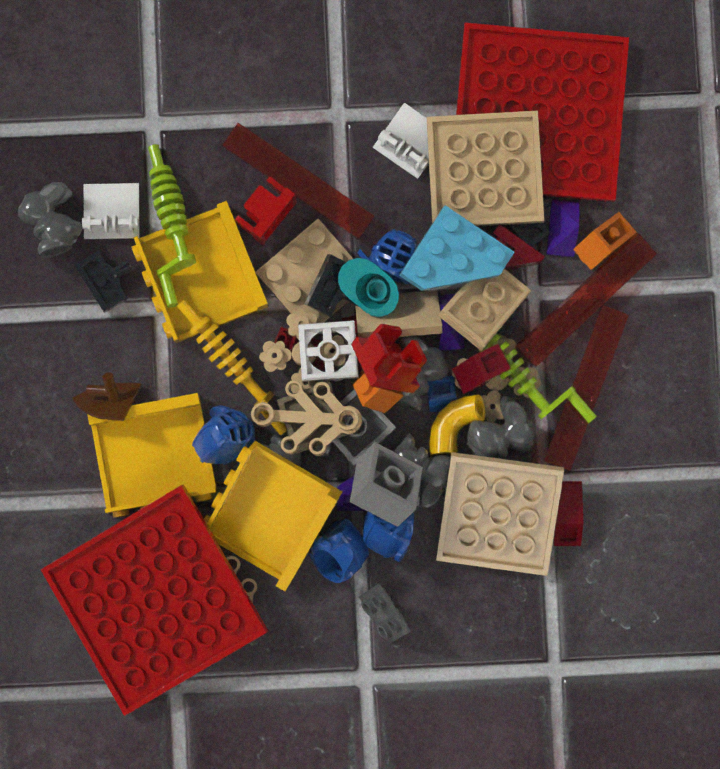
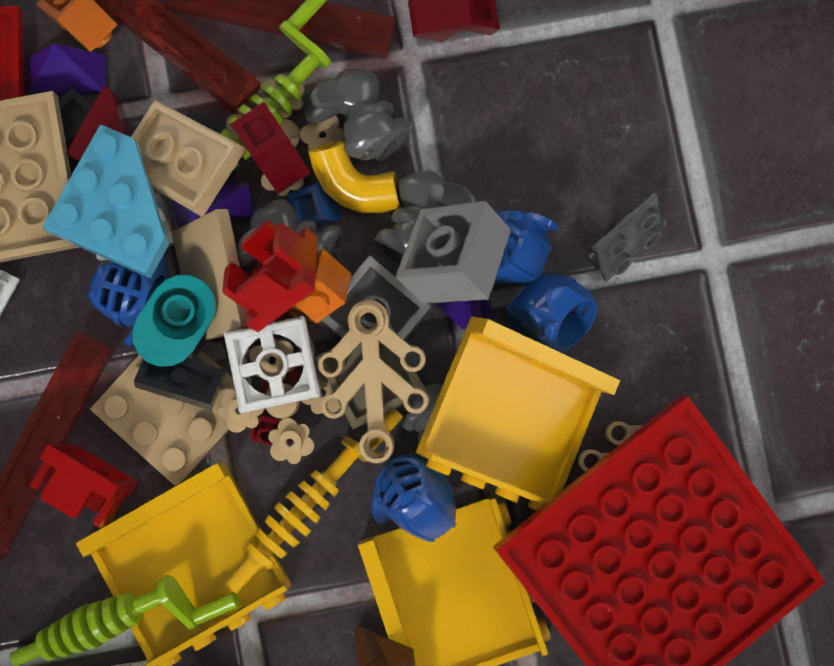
camera: 95 degrees left, 0 degrees up
(499, 513) = (467, 99): tan plate -> none

